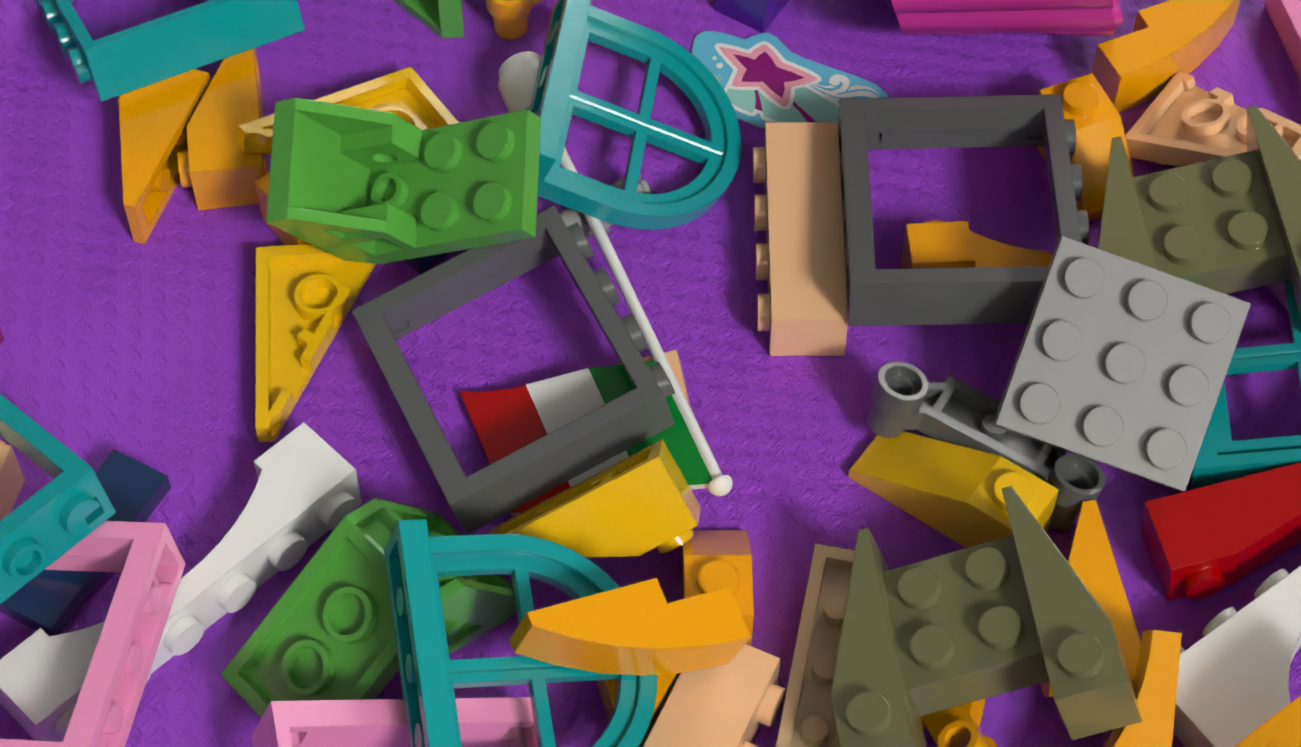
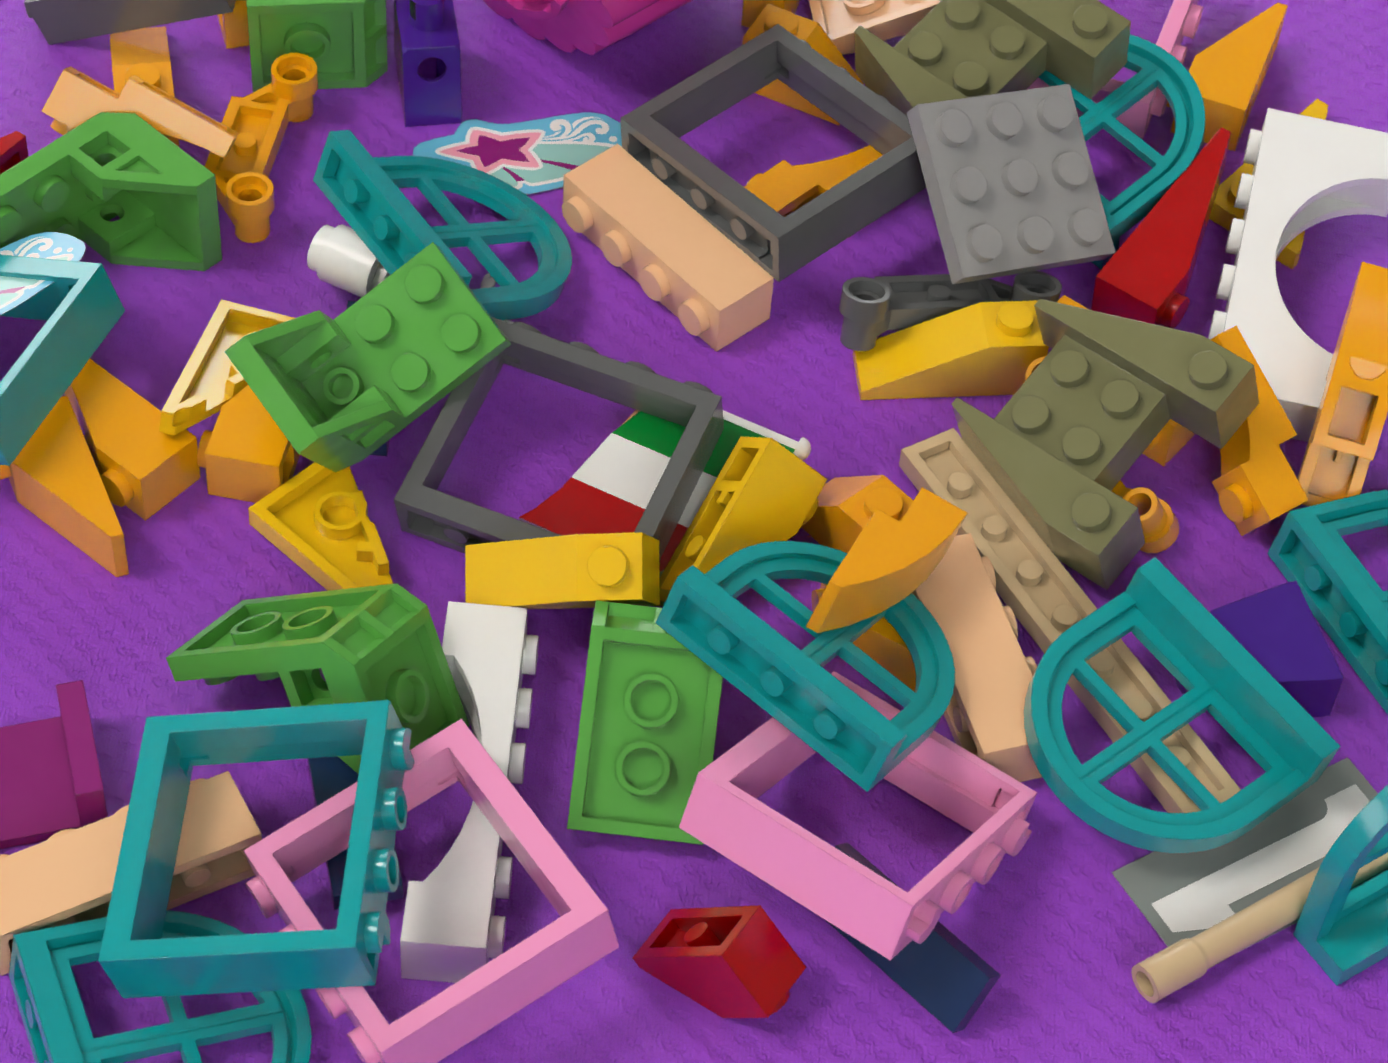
camera: 45 degrees left, 5 degrees down
(166, 424) = (364, 639): none -> bright green bracket
(408, 465) = (564, 571): none -> yellow slope

